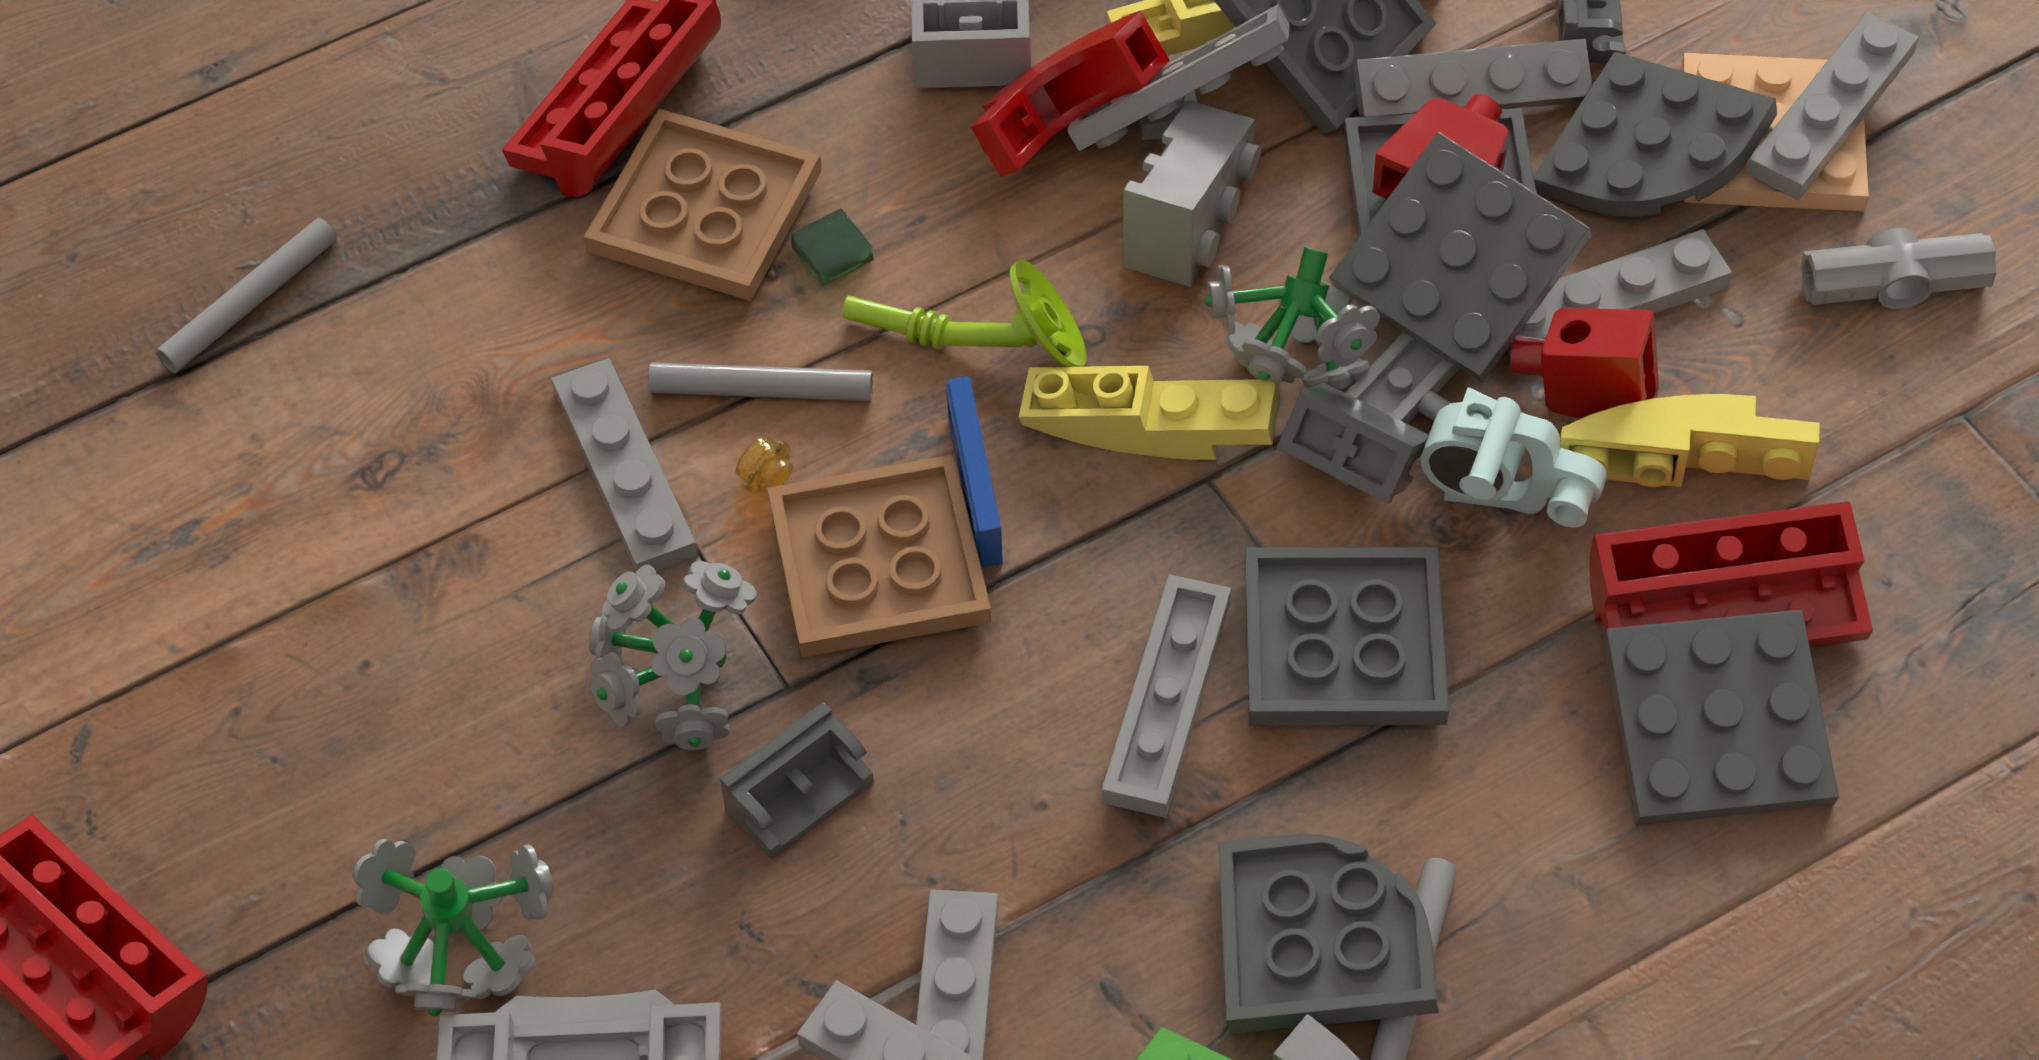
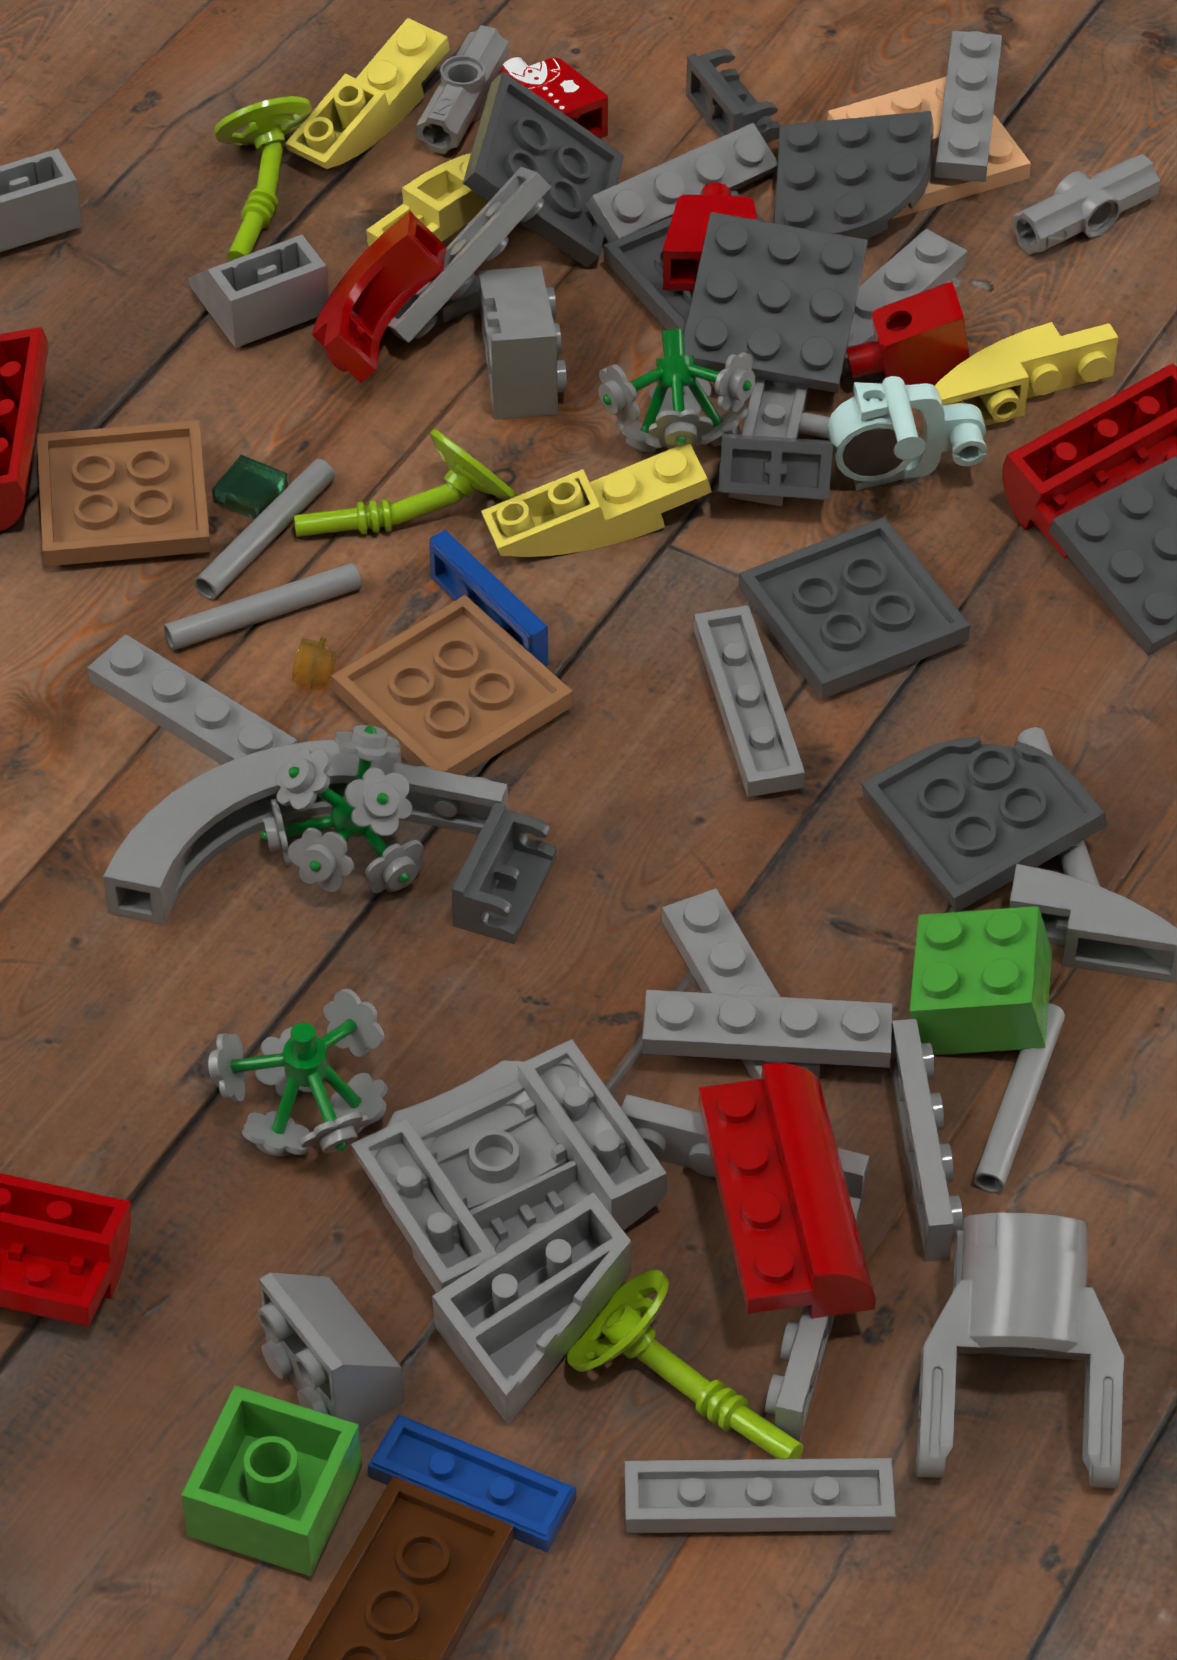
camera: 30 degrees left, 5 degrees down
(566, 588) = (231, 804): none -> light grey arch
(816, 297) = (264, 529): none -> light grey piece

